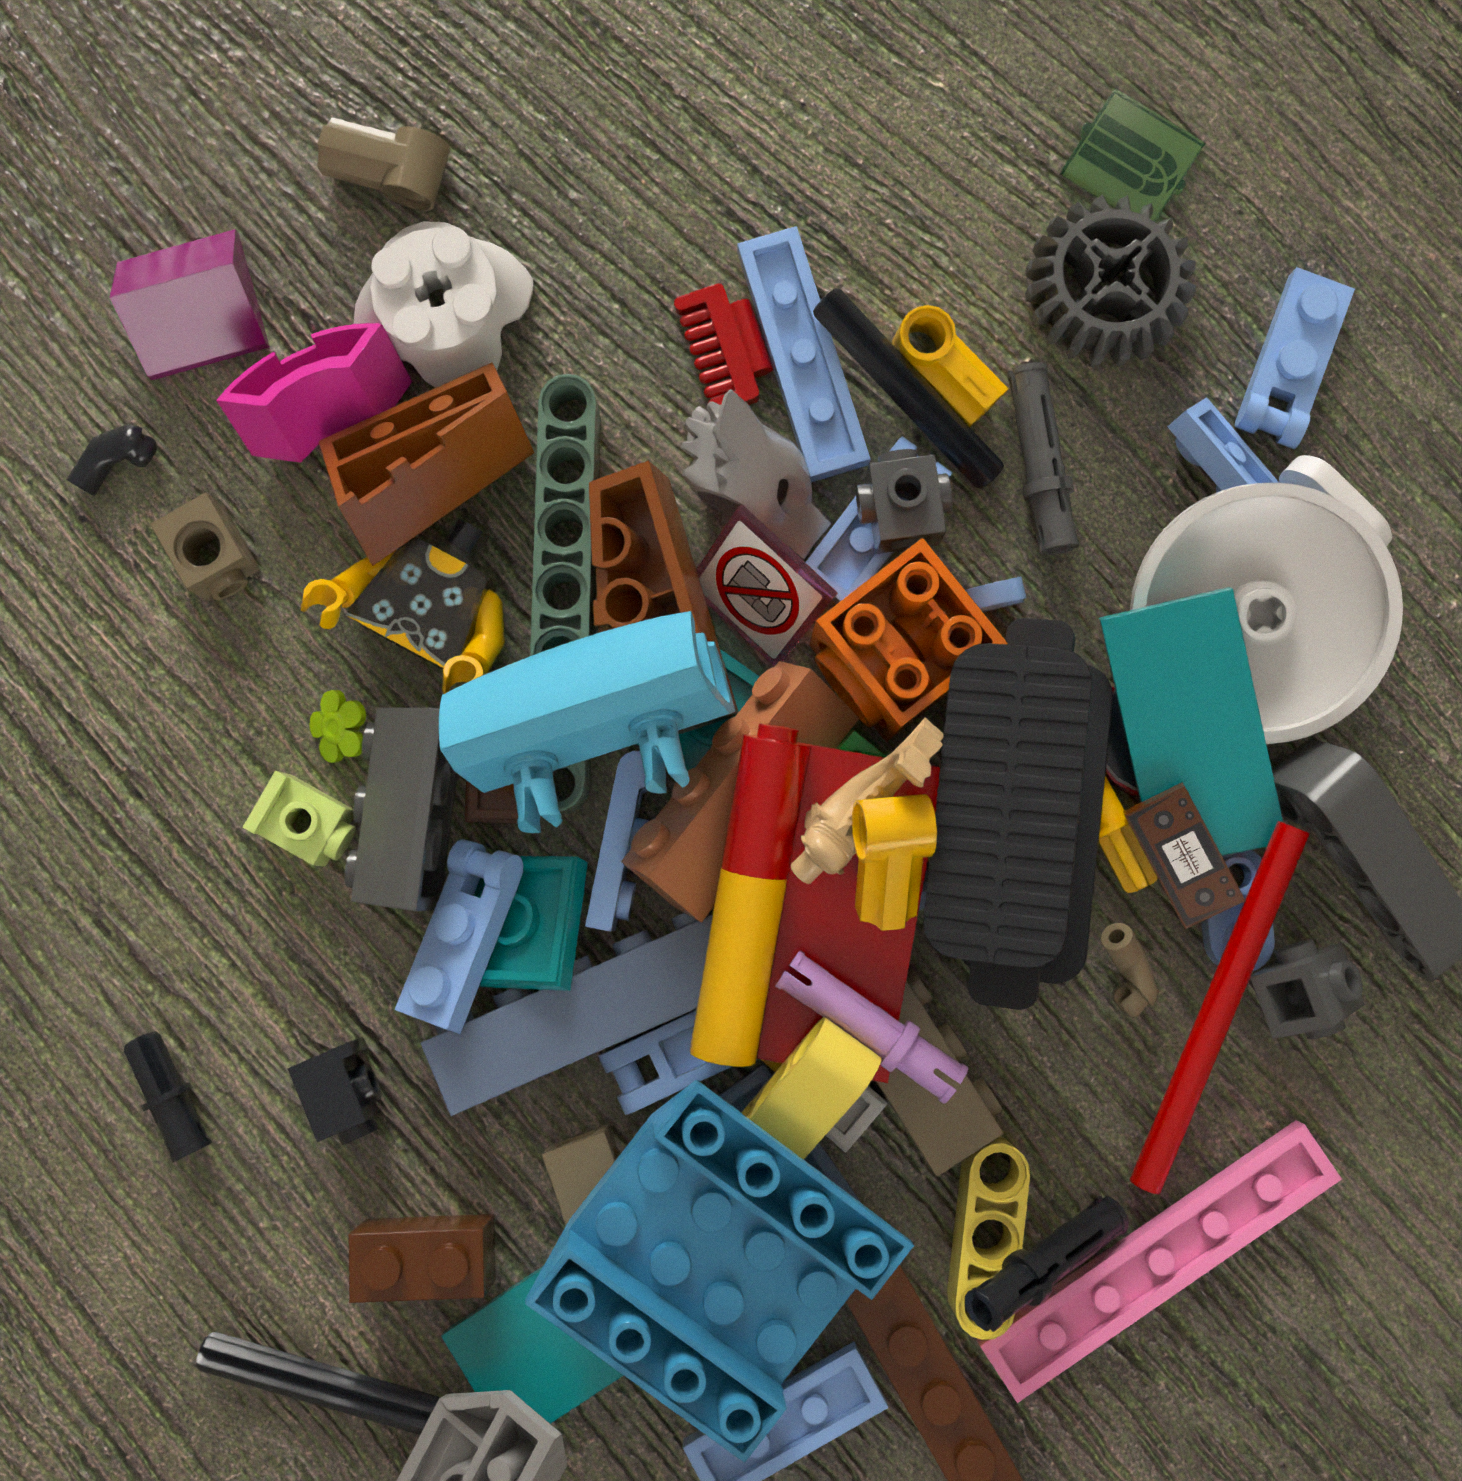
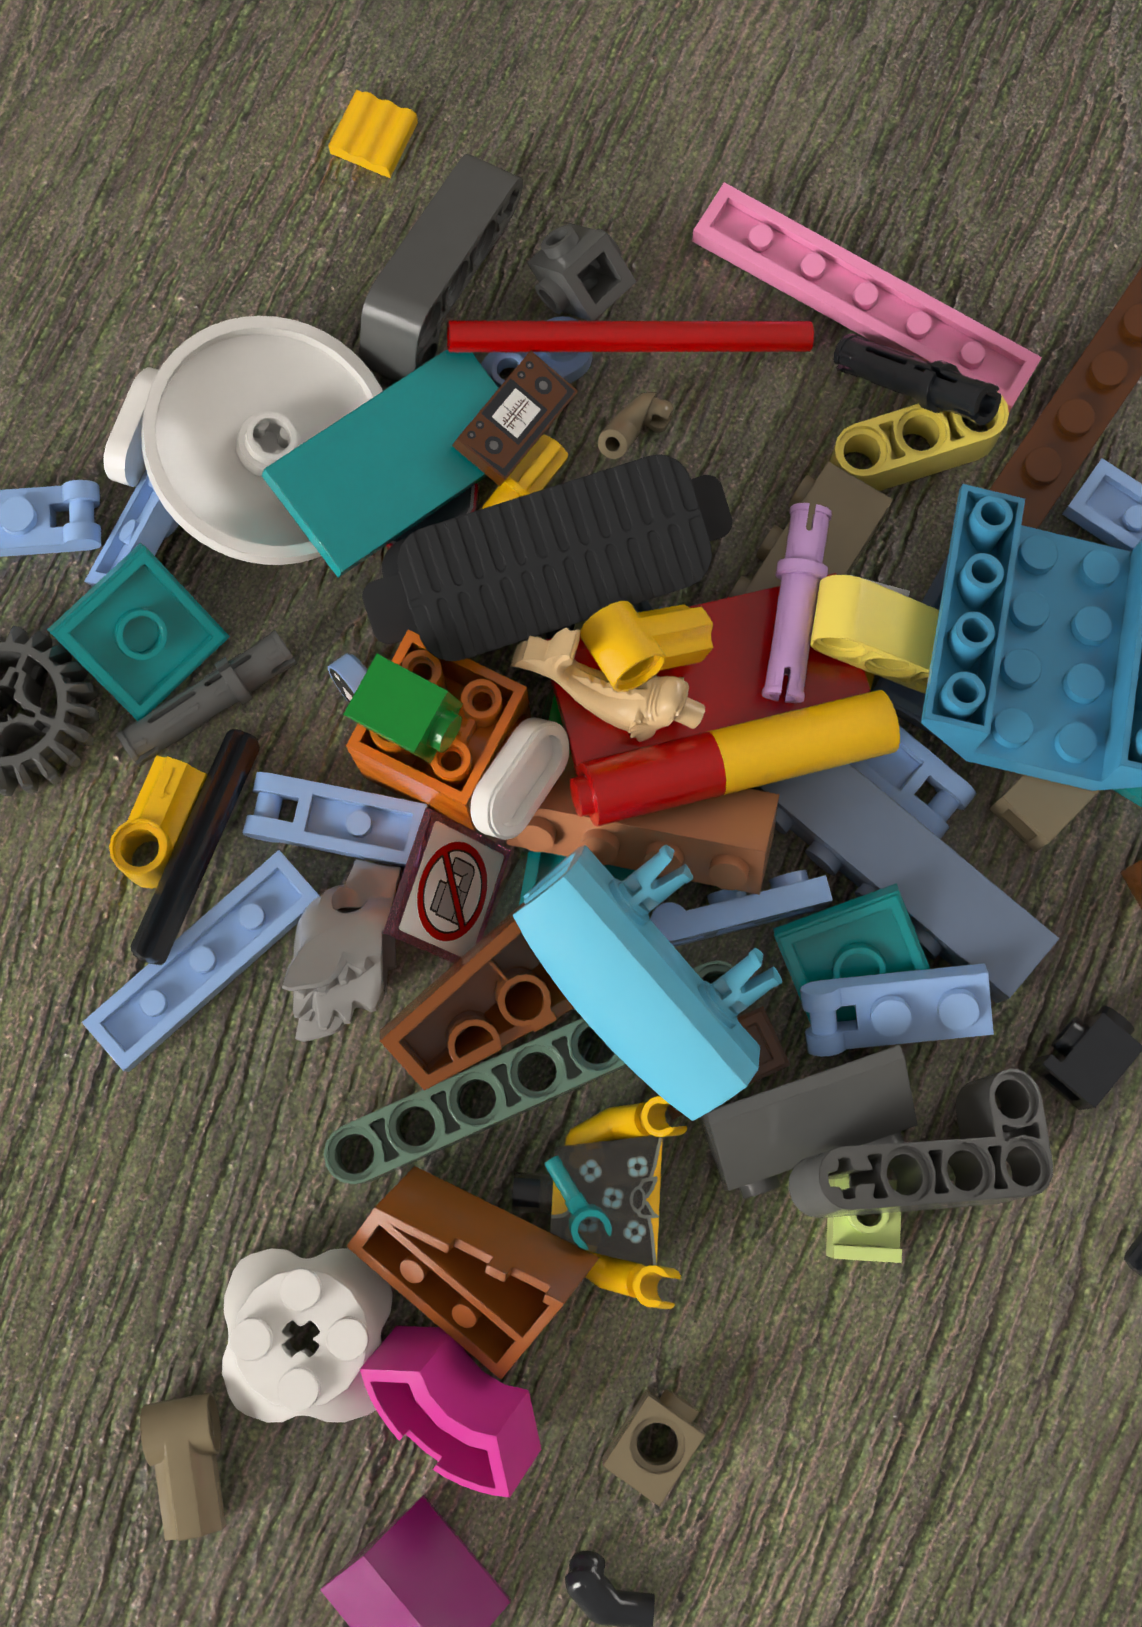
camera: 115 degrees left, 5 degrees down
(311, 885) = (977, 1159): none -> dark grey beam
(338, 726) = (761, 1228): lime plant -> none
(421, 569) = (575, 1201): none -> teal hand
(736, 335) = (215, 1030): red piece -> none
(821, 685) = (520, 778): none -> white tile
(899, 522) = (307, 769): dark grey brick -> none
(924, 596) = (405, 709): none -> green brick
(1131, 420) = (139, 632): none -> teal tile

